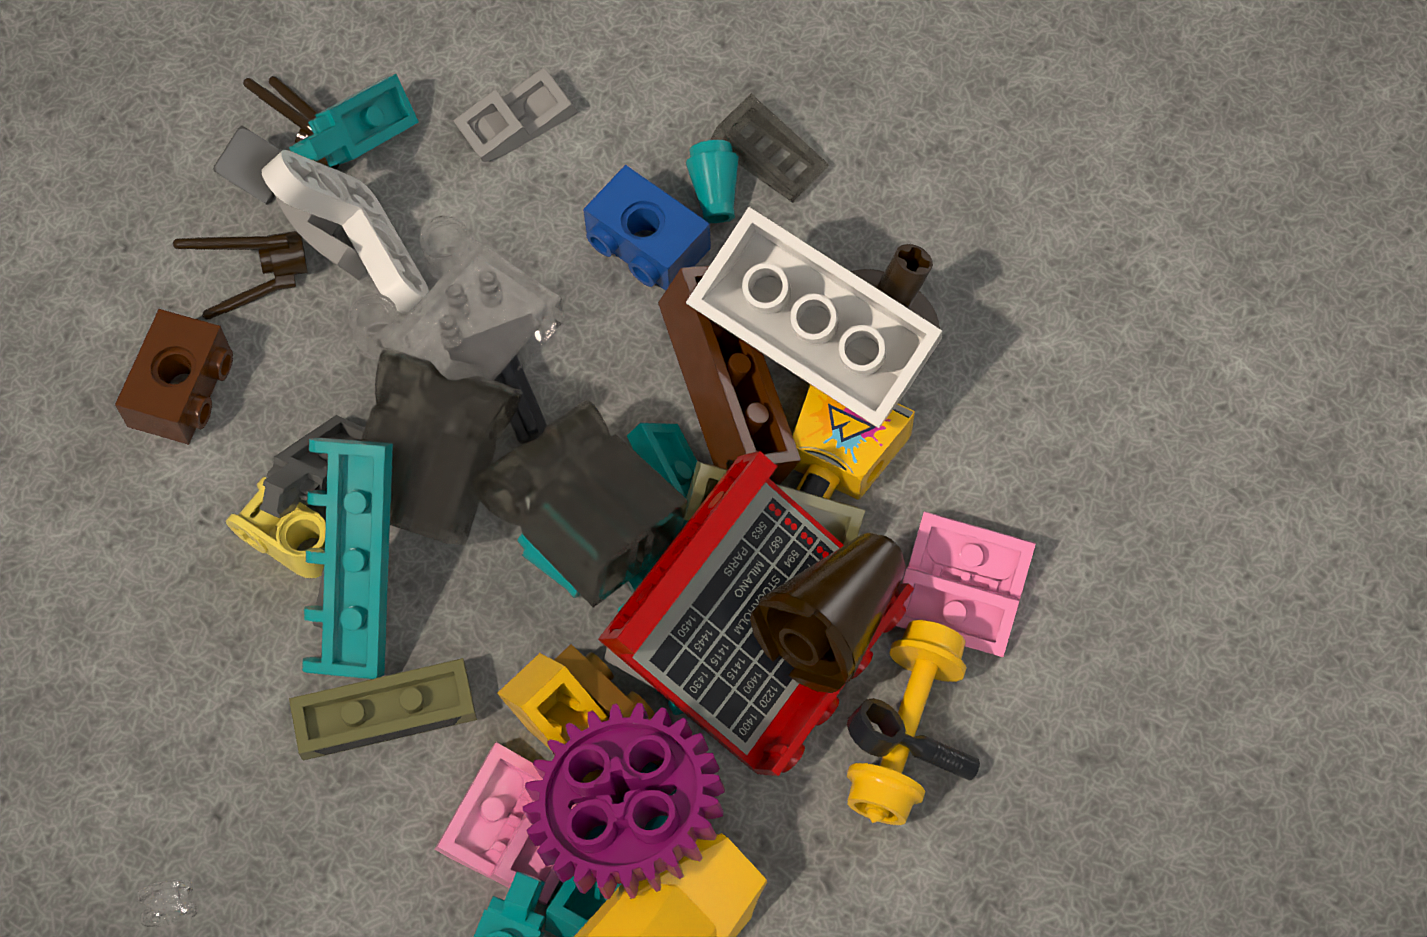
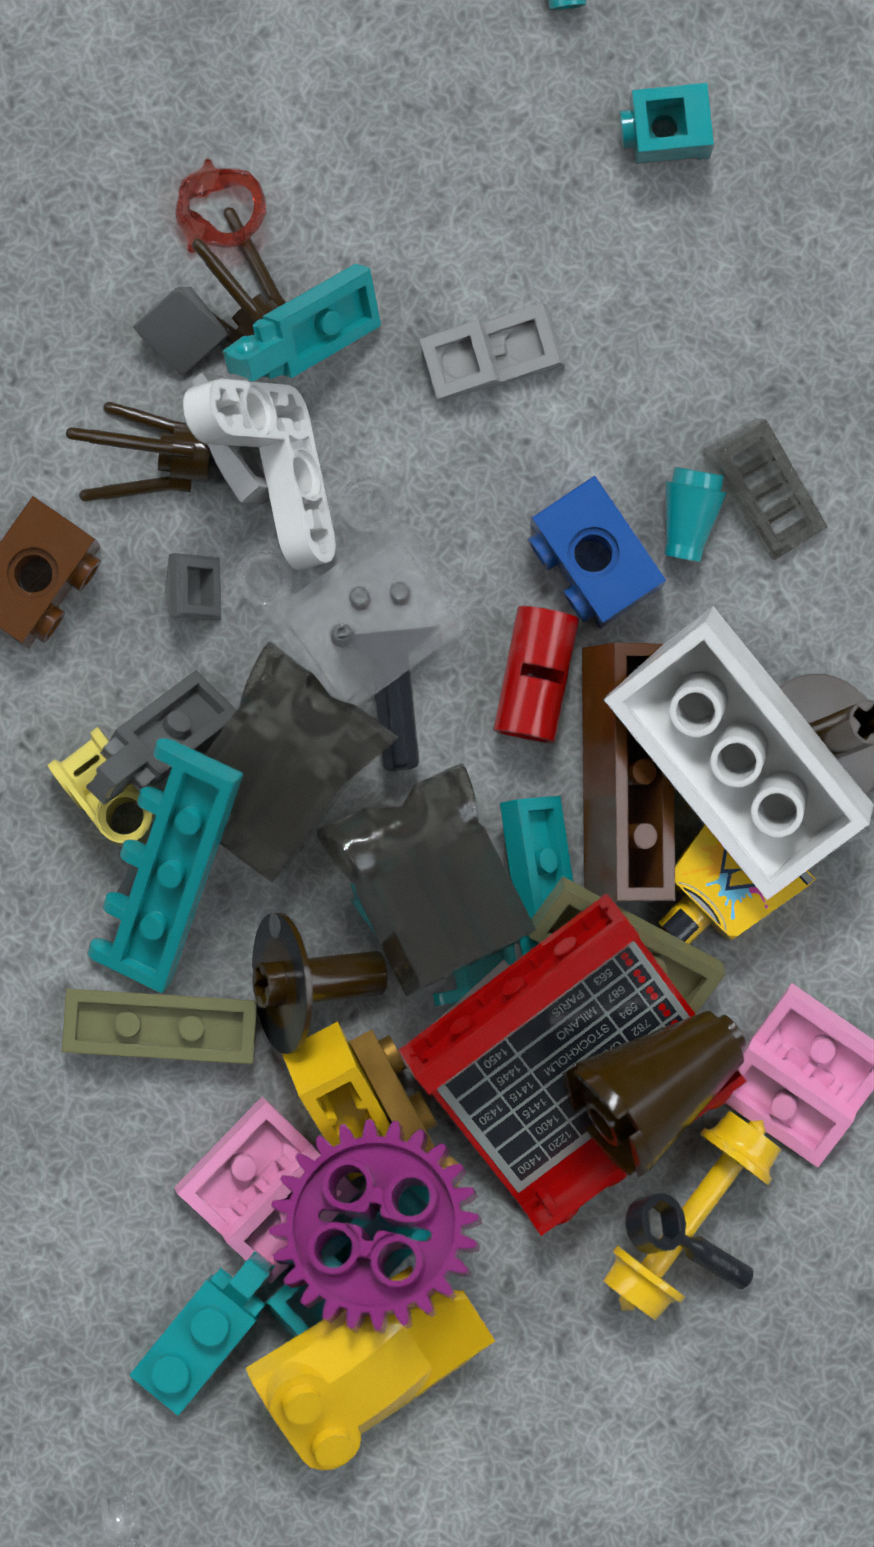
camera: 15 degrees right, 20 degrees up
(251, 60) = (209, 180): none -> clear red piece
(316, 350) = (193, 587): none -> dark grey slope
(487, 627) = (289, 981): none -> dark brown piece
(626, 333) = (536, 674): none -> red pin

